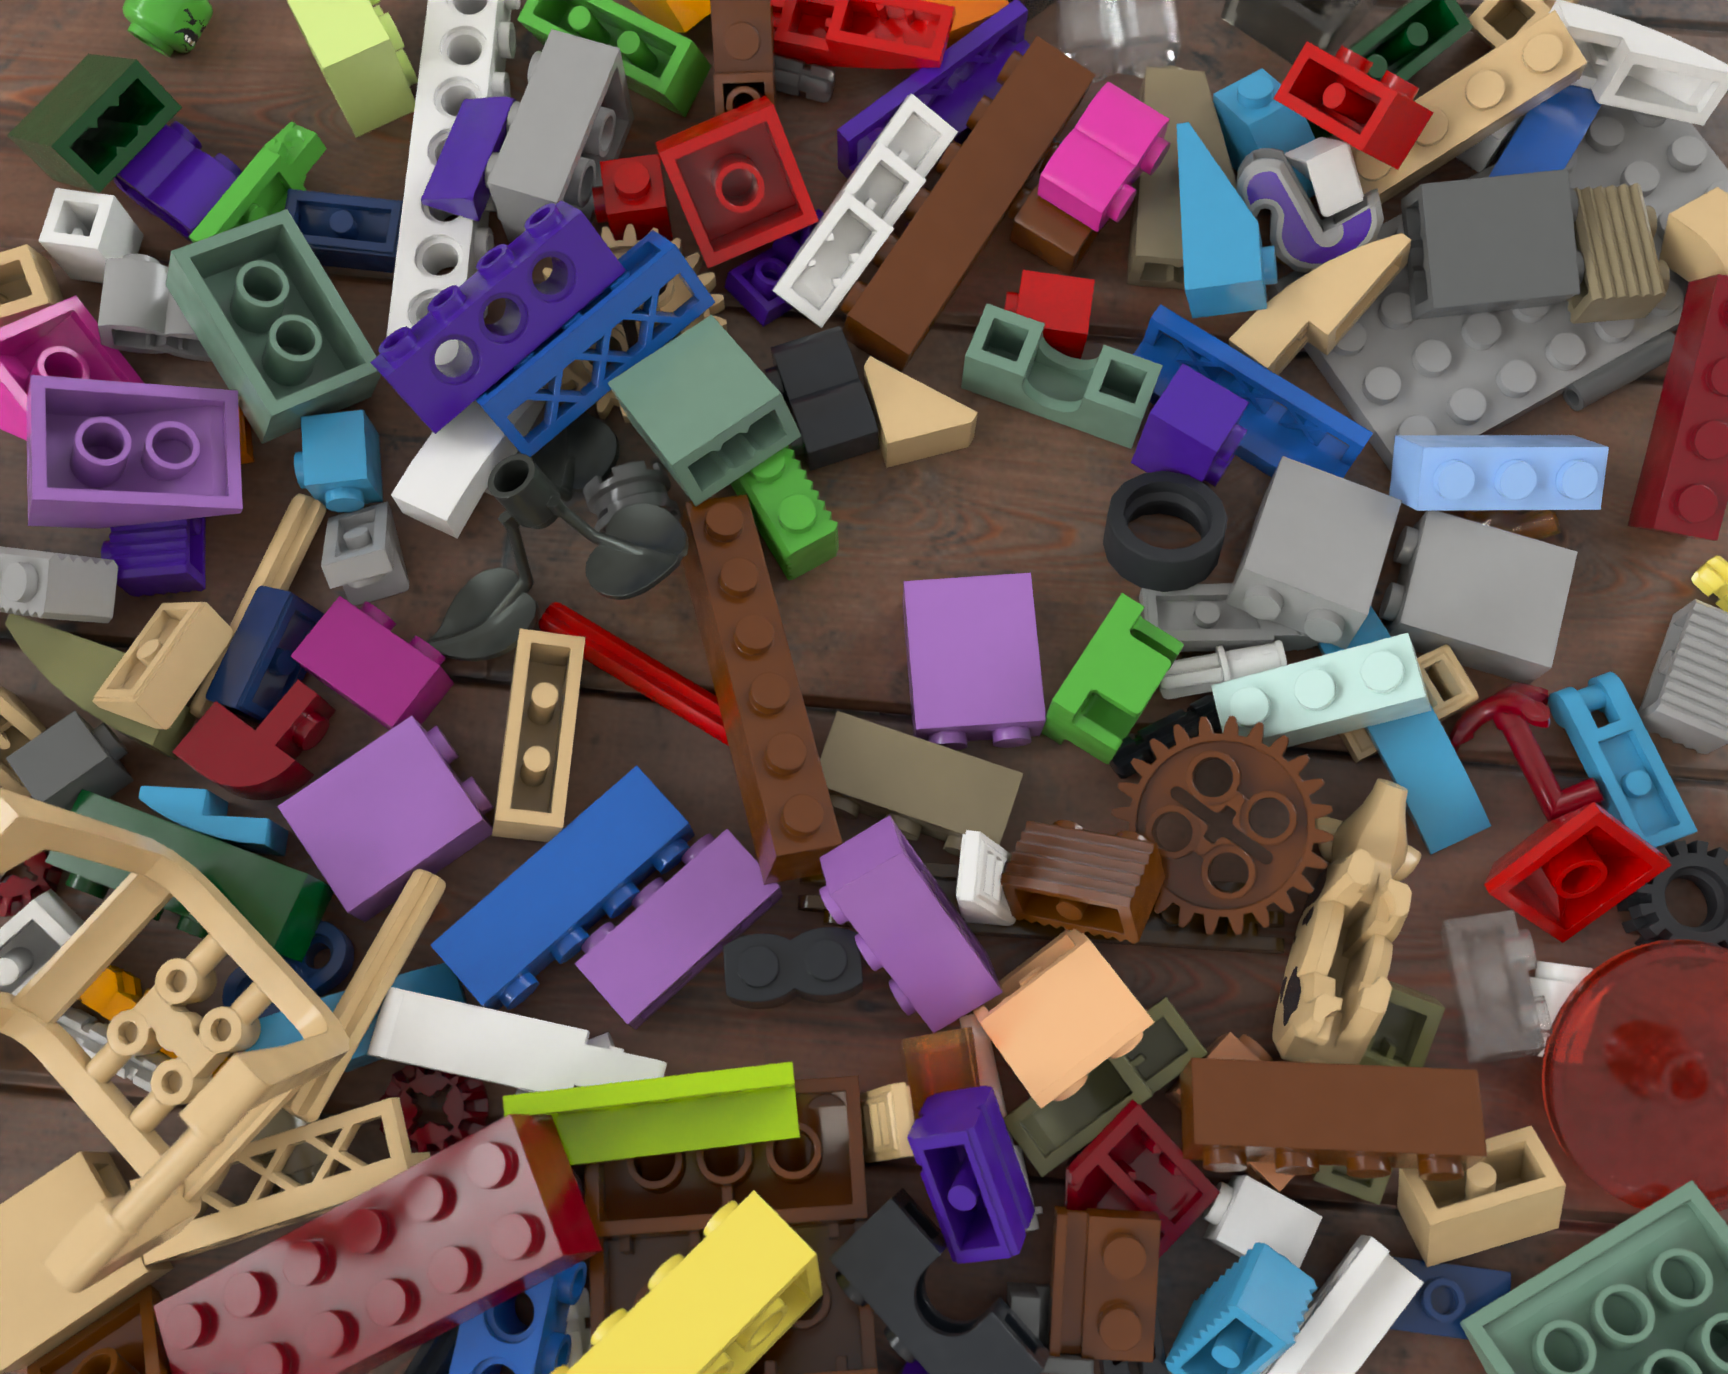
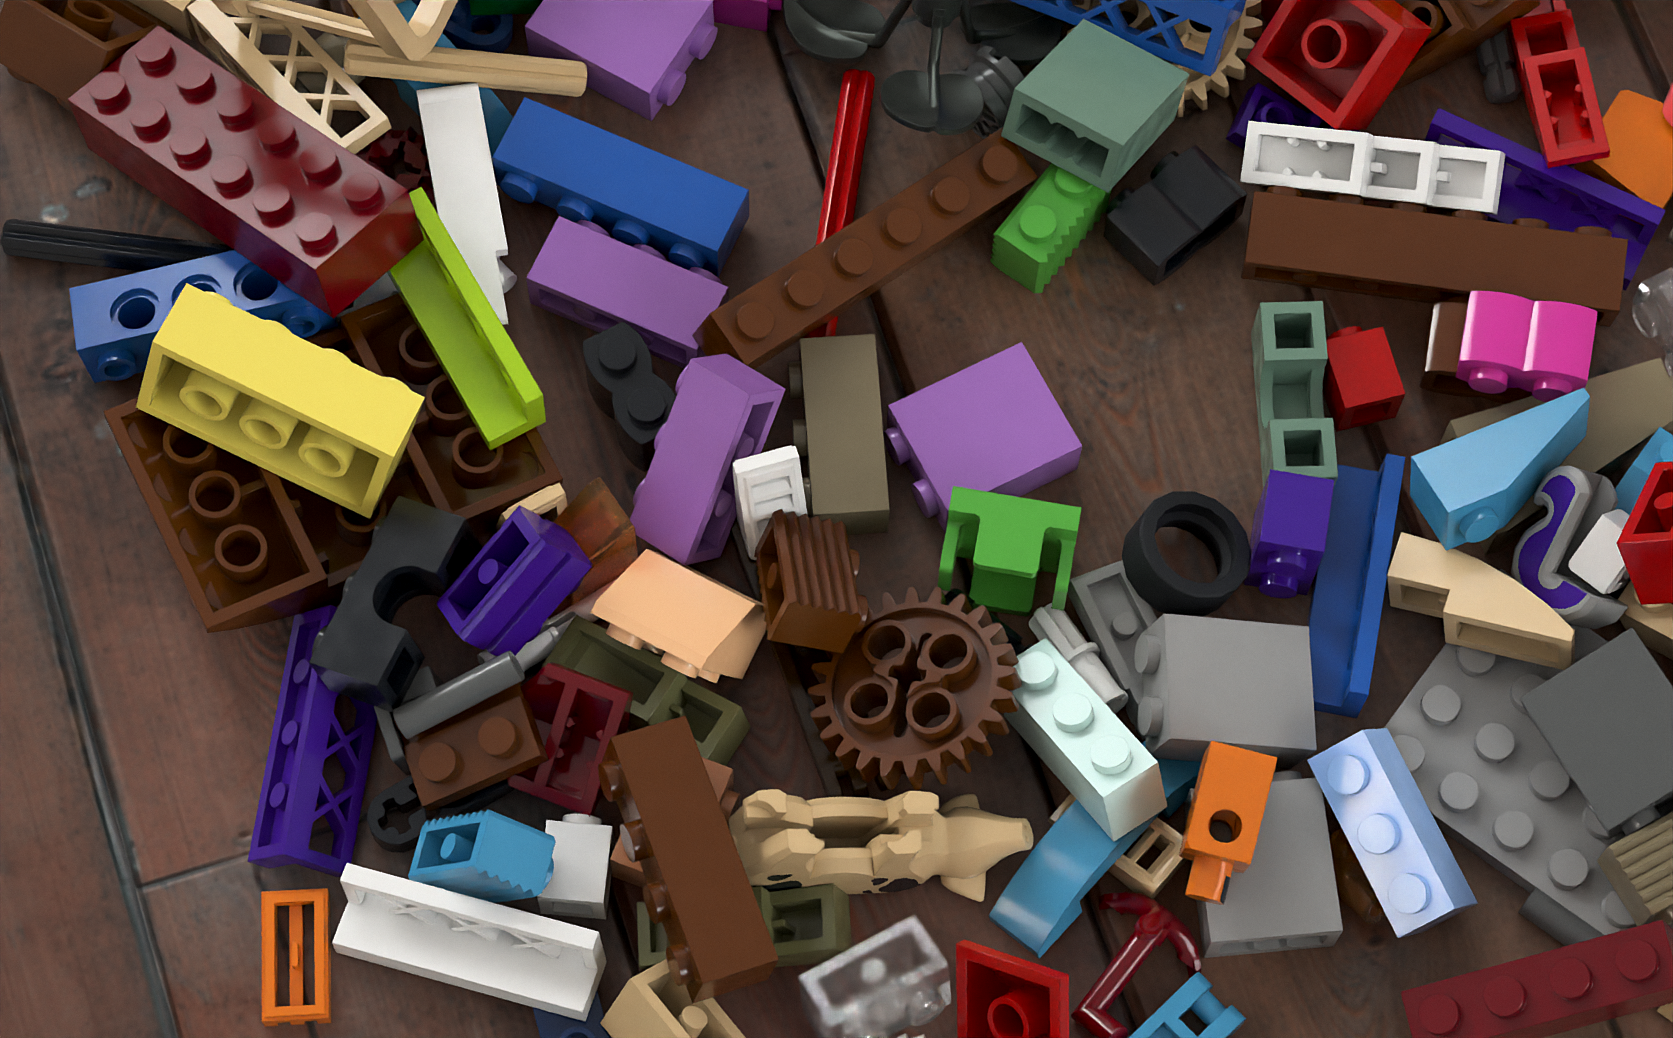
camera: 65 degrees right, 5 degrees down
(538, 736) = (743, 106): tan brick -> none
(913, 417) = (1188, 295): tan slope -> none
(1065, 1280) = (458, 694): none -> dark grey piece
(1465, 597) = (1228, 790): none -> orange torso

